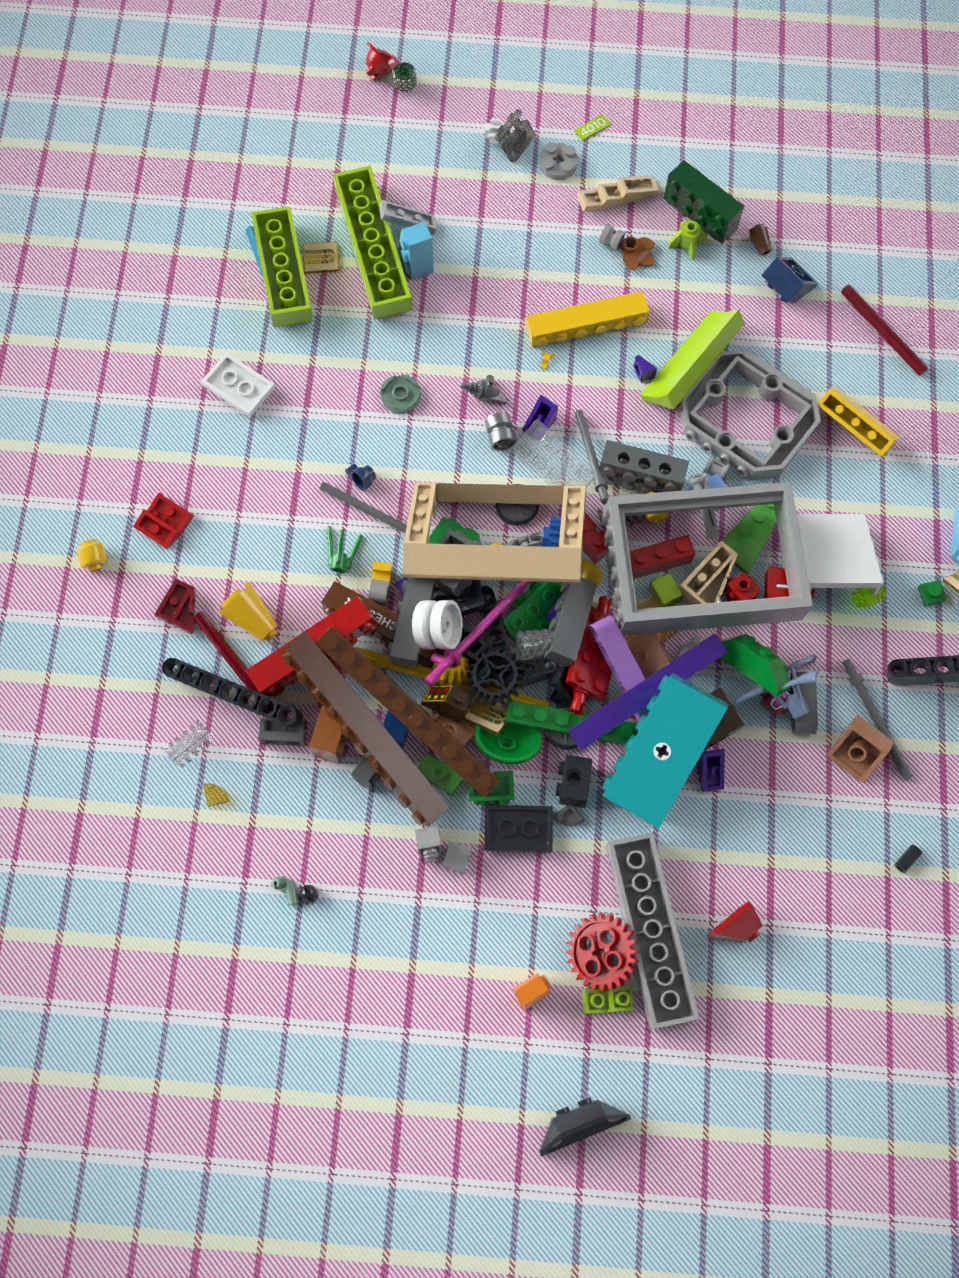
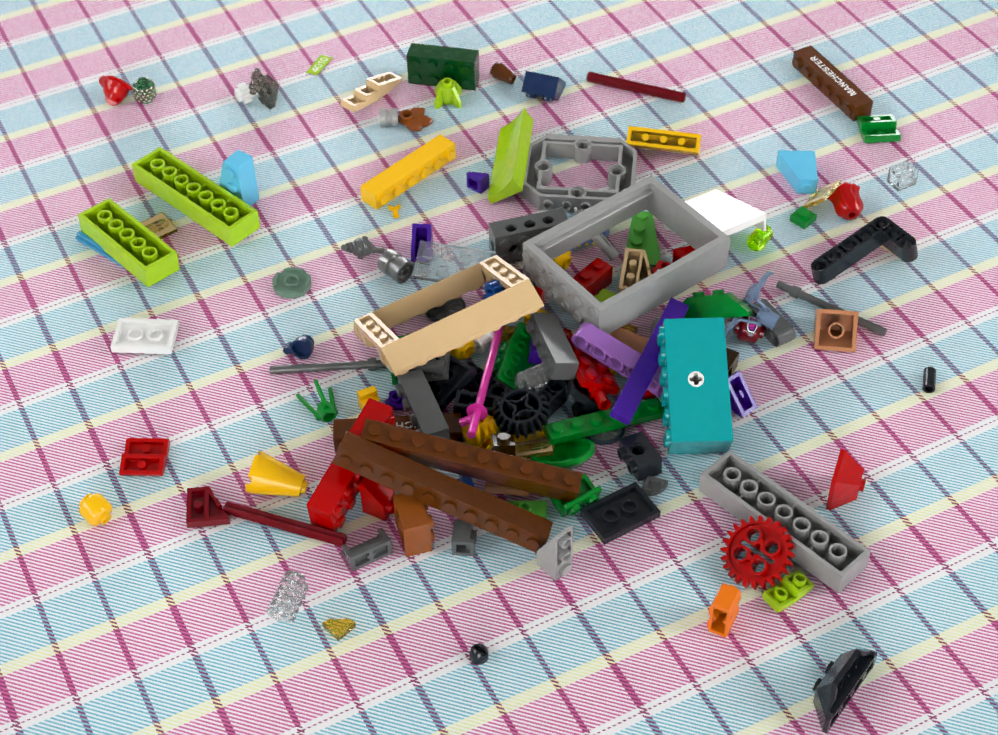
camera: 30 degrees left, 25 degrees down
(223, 688) = (290, 536): black beam -> none
(288, 887) = (457, 658): sand green arm -> none
(405, 216) = (205, 166): light grey tile -> none
(437, 624) = (446, 393): white wheel -> none
(457, 857) = (586, 558): light grey piece -> none
(561, 151) = (314, 87): light grey plate -> none
(600, 483) = (504, 252): dark grey bar -> none

